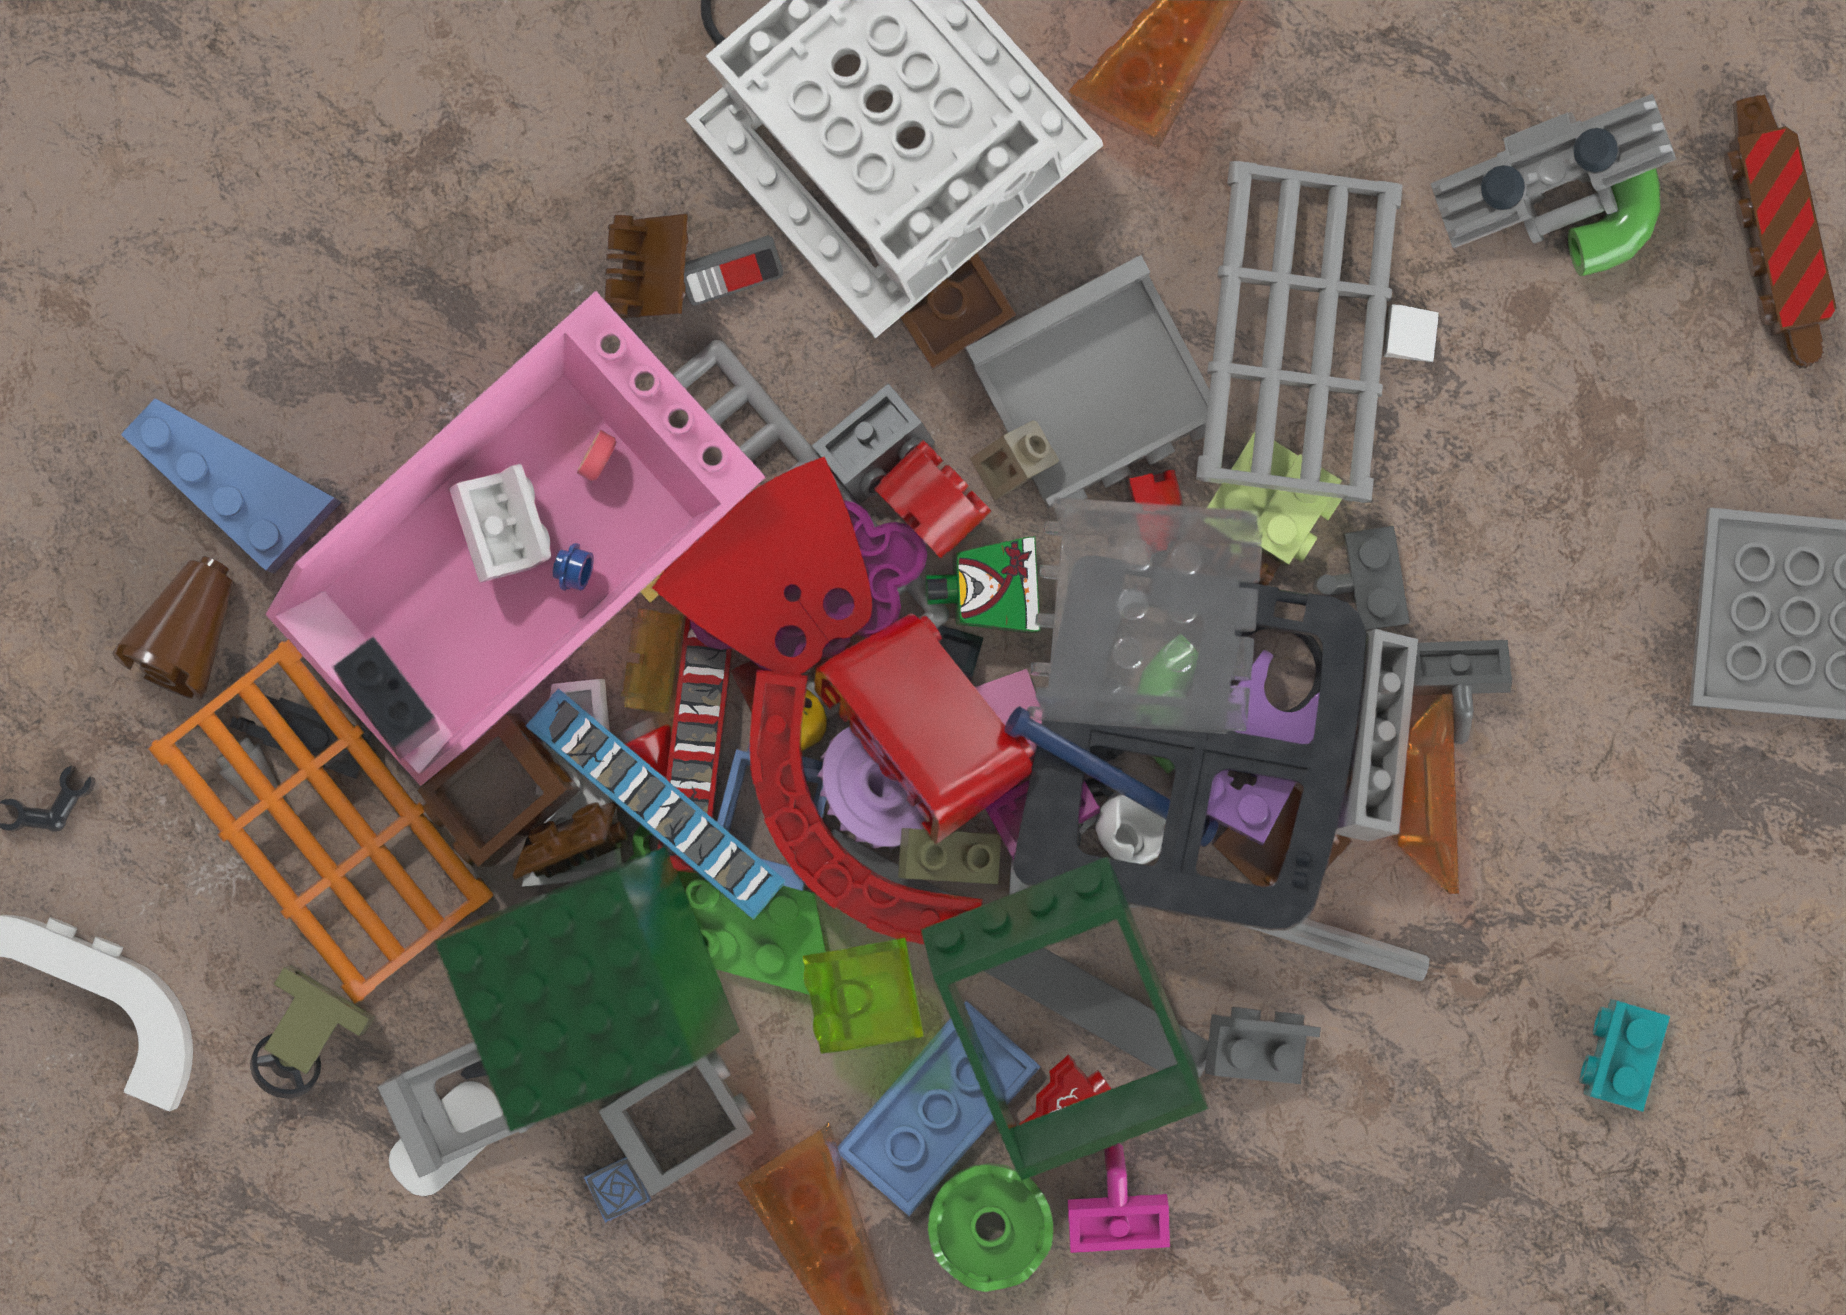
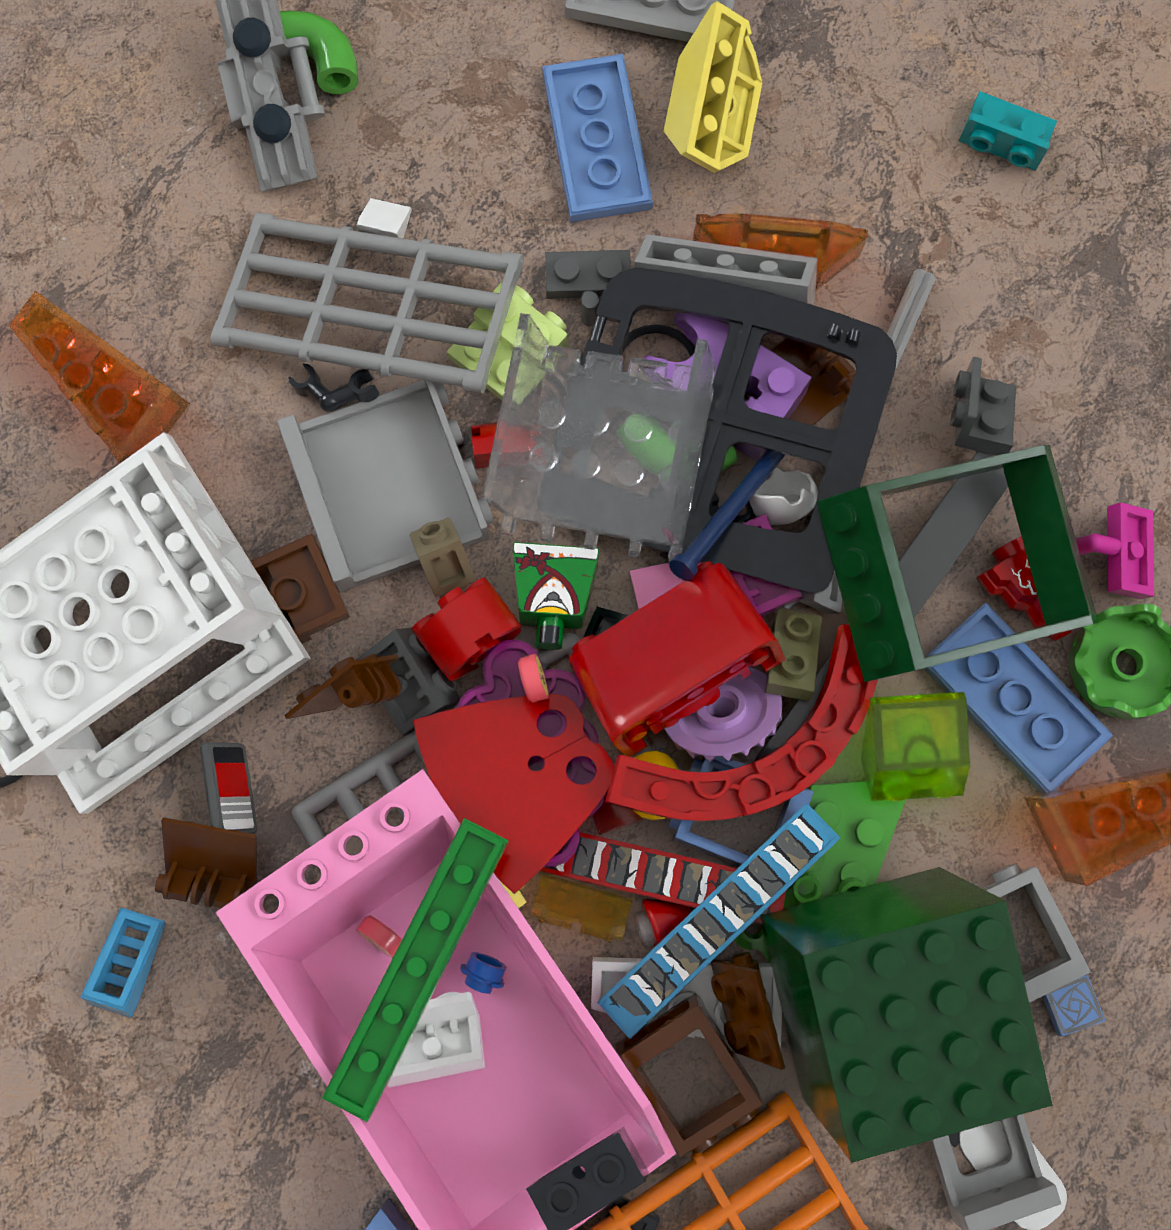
camera: 90 degrees left, 10 degrees down
(503, 168) = (108, 957): none -> dark azure slope
(567, 501) = (415, 970): none -> green tile
(851, 390) = (351, 684): none -> reddish brown hinge
(882, 578) = (533, 678): none -> coral tile
(1180, 310) = (331, 400): none -> black arm
(1462, 670) = (676, 205): dark grey plate -> none
(1552, 566) = (597, 138): none -> medium blue tile
(1611, 699) = (715, 92): none -> light yellow wedge

